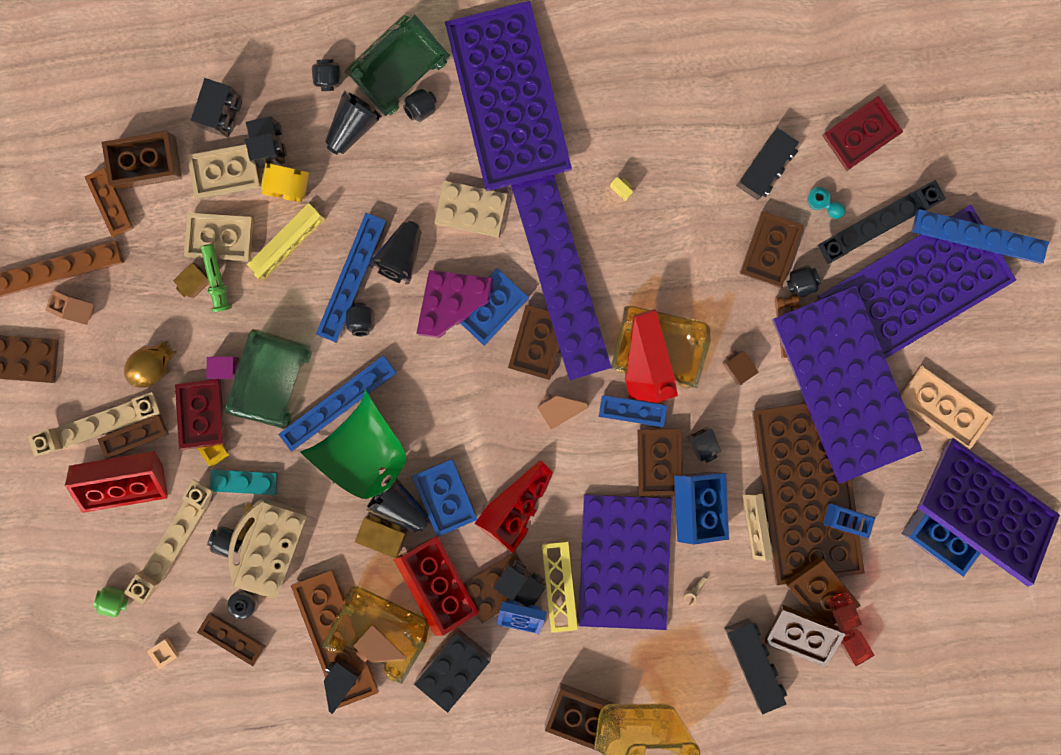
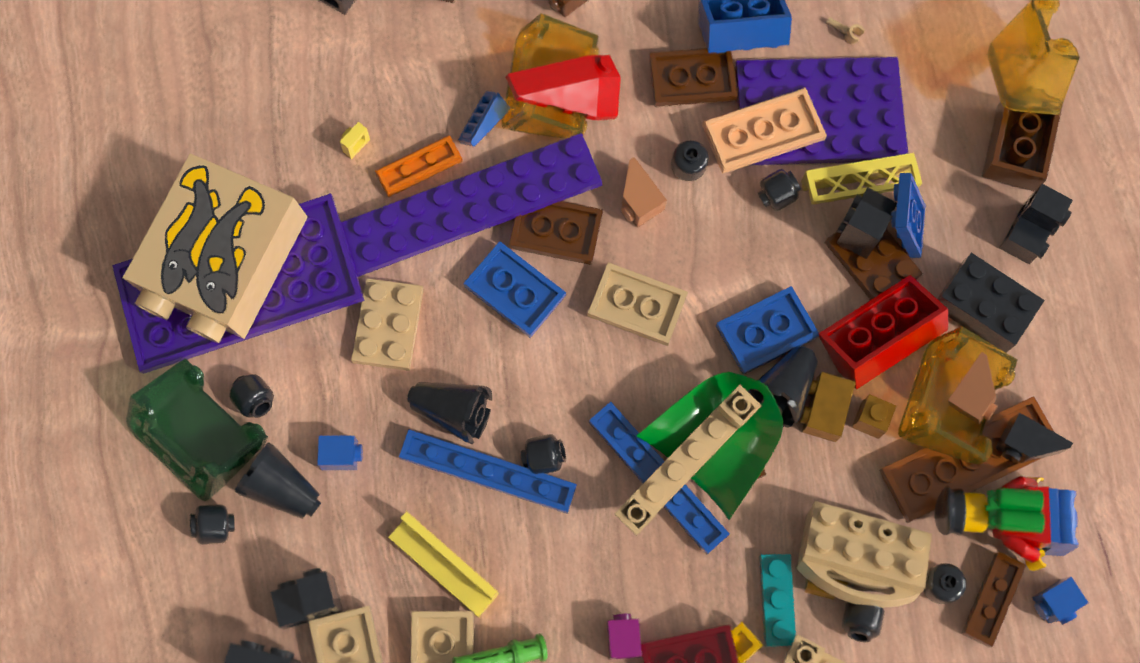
camera: 105 degrees left, 15 degrees down
(225, 686) = (1060, 601): none -> blue brick
(266, 378) = (635, 569): clear green windscreen -> none
(282, 667) = (1021, 514): none -> piece
(285, 181) = (361, 566): yellow brick -> none
(342, 421) = (687, 459): none -> tan slope
(370, 569) = (874, 416): none -> pearl gold brick
(372, 168) = (339, 452): none -> blue brick
(450, 300) = (510, 337): magenta plate -> none
(472, 400) = (637, 304): none -> tan plate
(509, 513) = (780, 251): red wedge -> none
(513, 716) = (1035, 221): none -> black brick
(526, 77) = (214, 249): none -> tan brick
(557, 519) = (779, 189): none -> black head
(583, 443) = (689, 160): none -> black head
(599, 238) = (418, 166): none -> orange tile
(606, 513) = (764, 130): none -> light nougat tile
(632, 291) = (485, 116): none -> blue slope
(632, 411) = (633, 111): blue plate -> none
(705, 444) = (665, 24): black slope -> none

